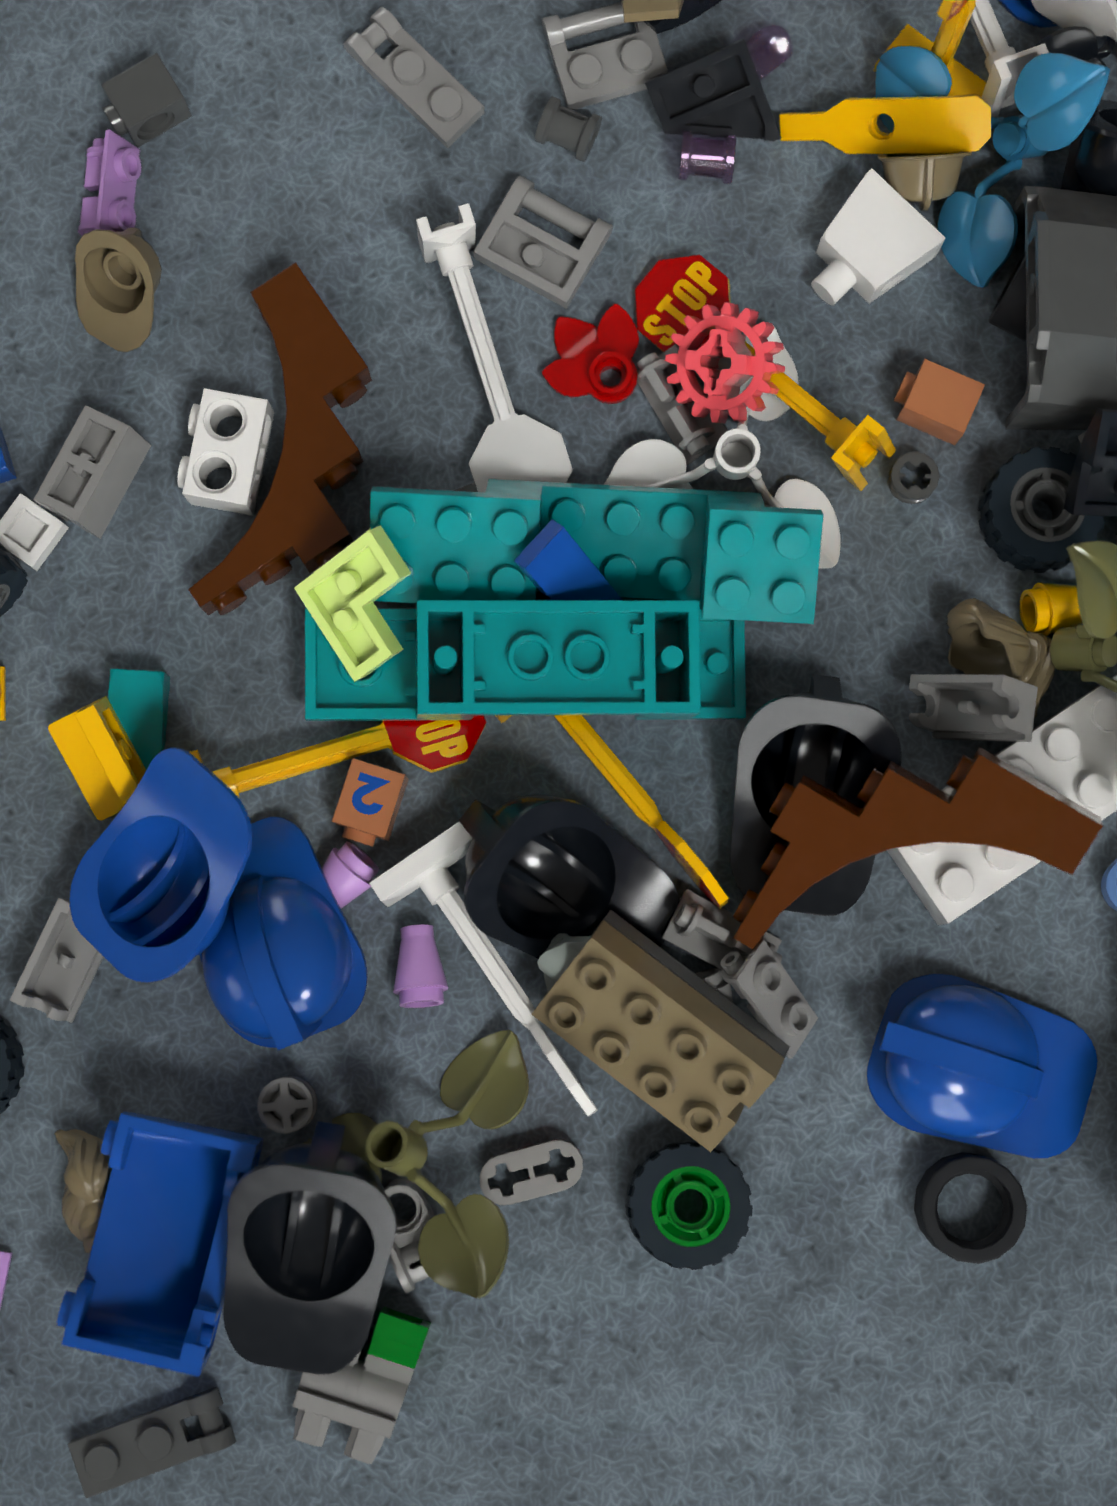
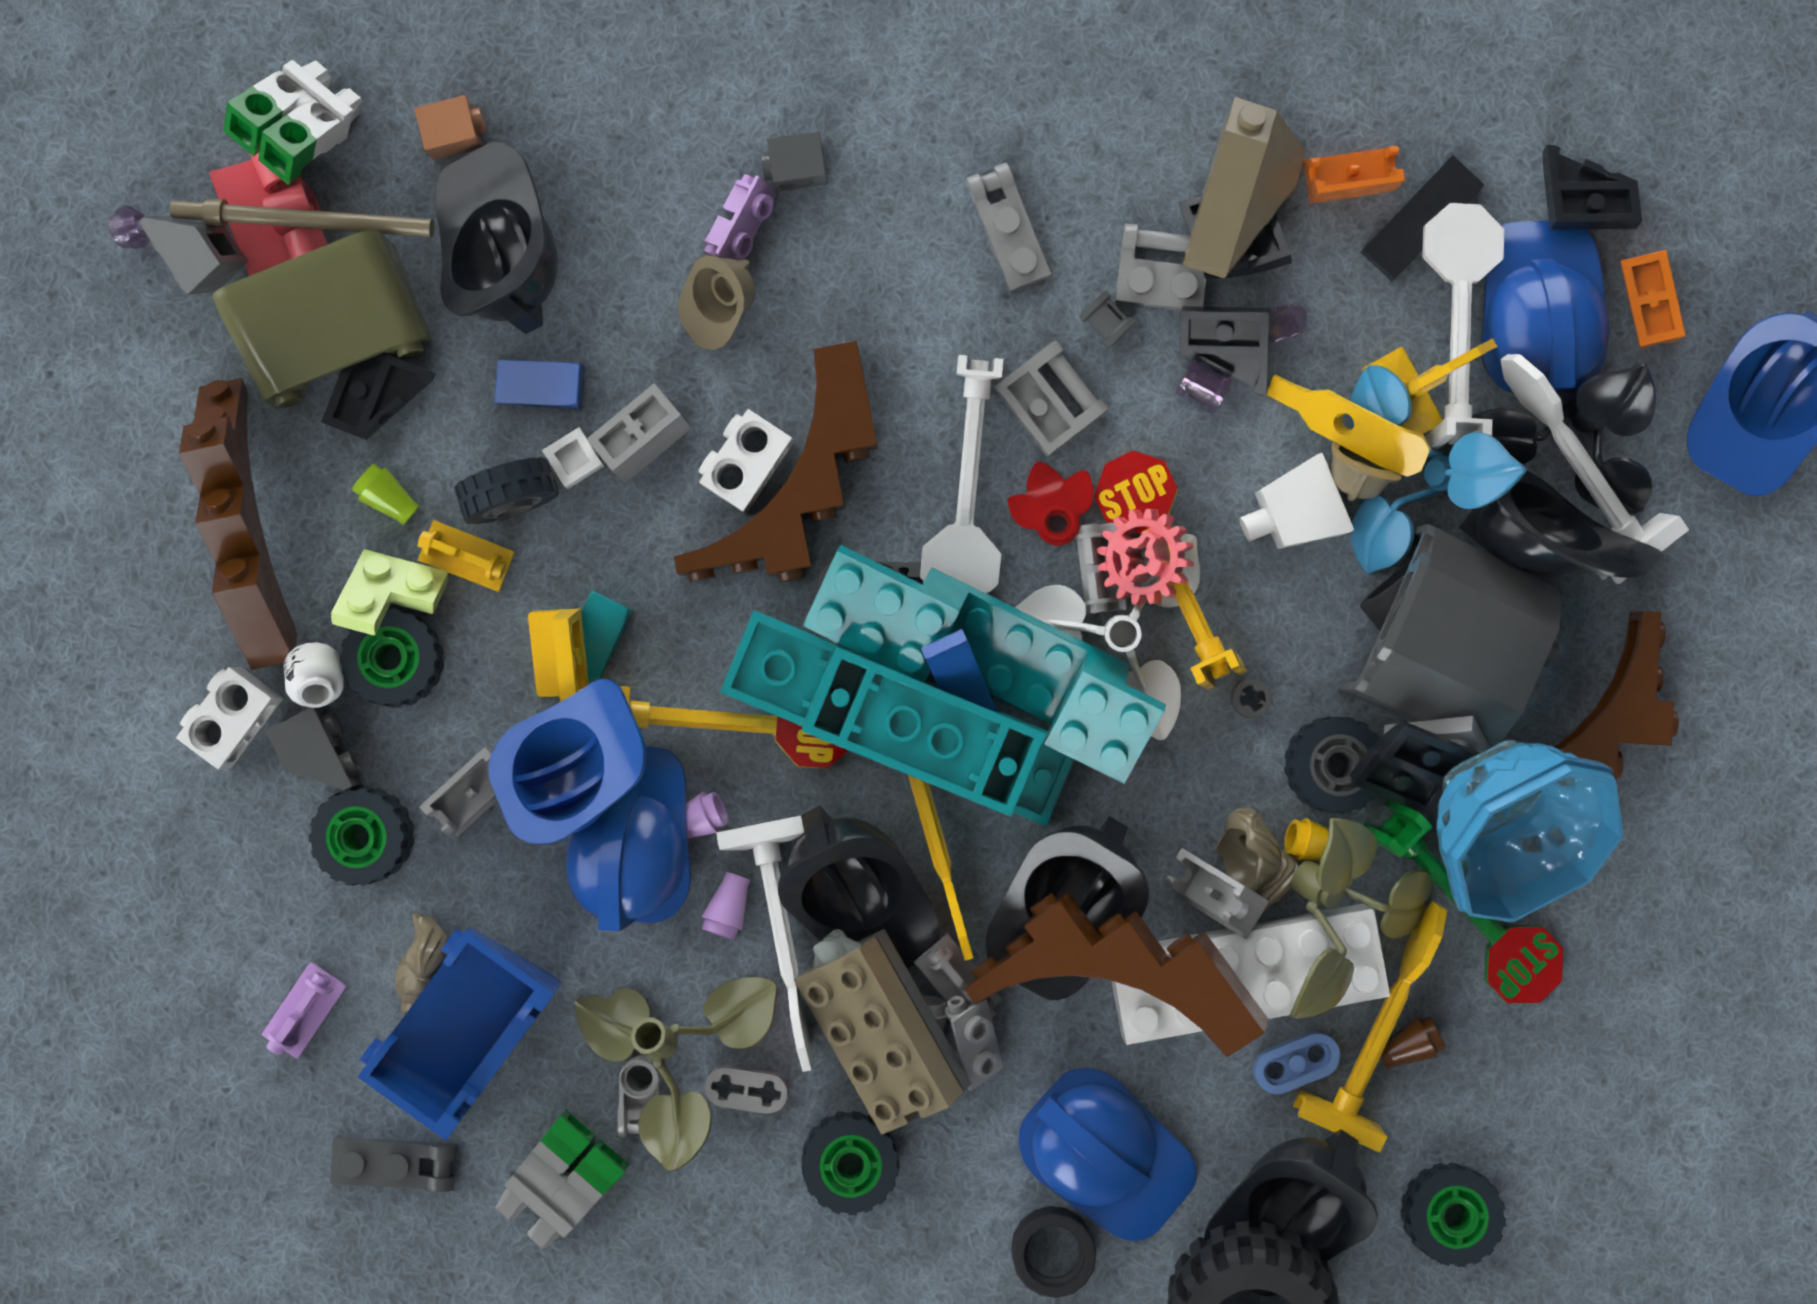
camera: 25 degrees right, 5 degrees up
(277, 1104) = (587, 973): light grey wheel -> none
(306, 1256) = (558, 1085): black piece -> none
(343, 599) = (782, 622): yellowish green plate -> none
(369, 802) = (741, 770): nougat brick -> none
(938, 401) = (1294, 649): nougat brick -> none

